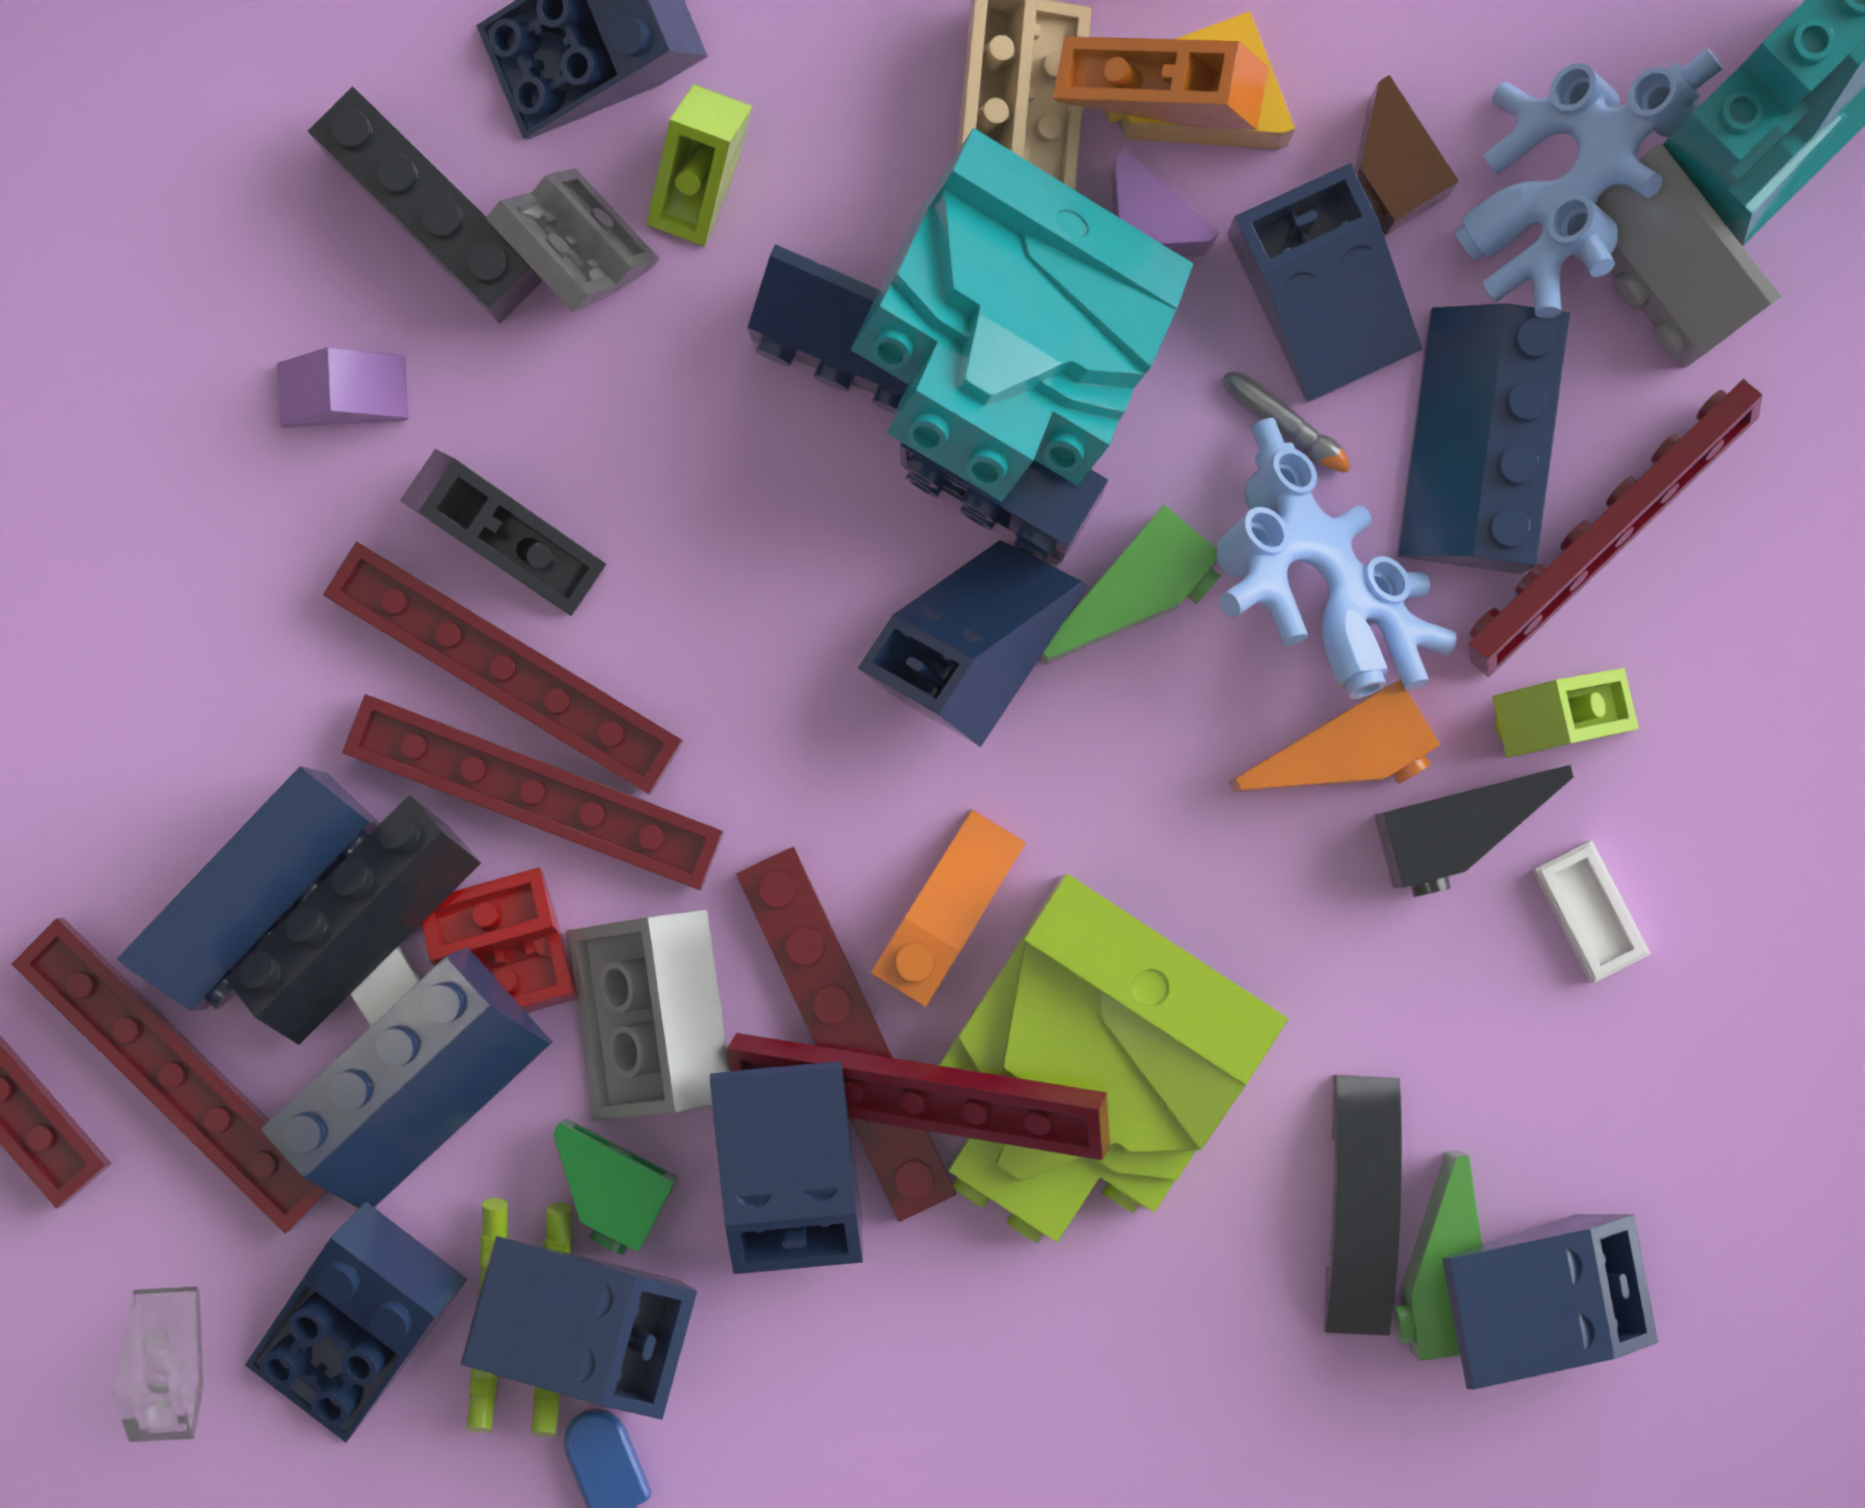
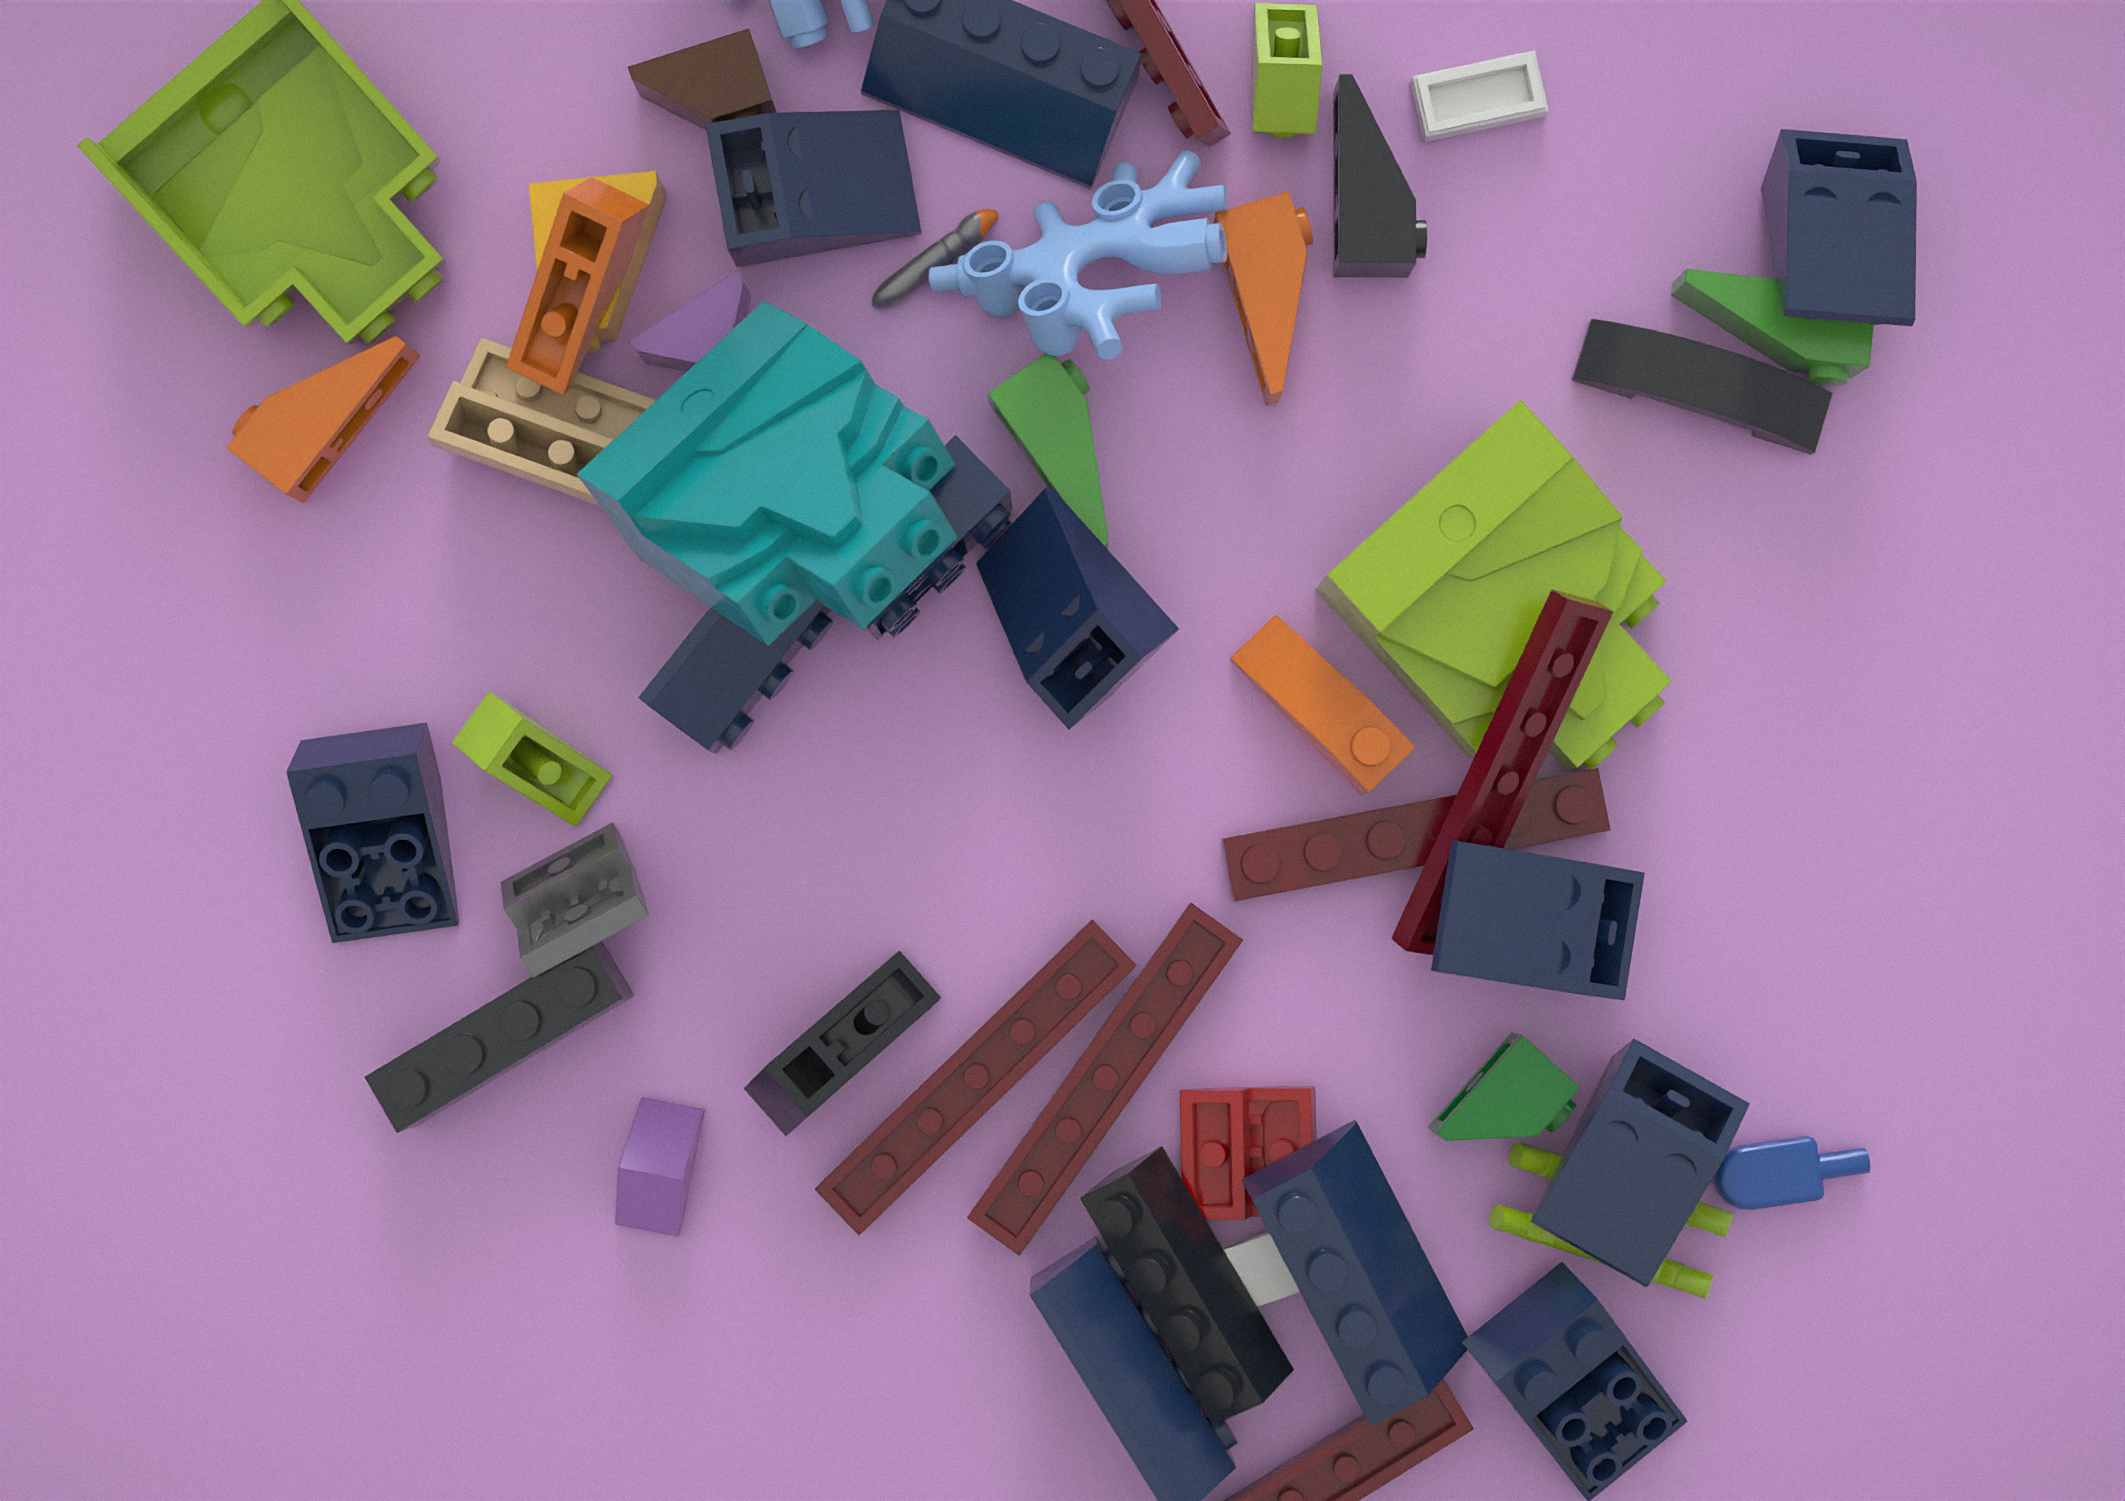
camera: 75 degrees left, 0 degrees up
(649, 1014) = (1351, 1019): light grey slope -> none

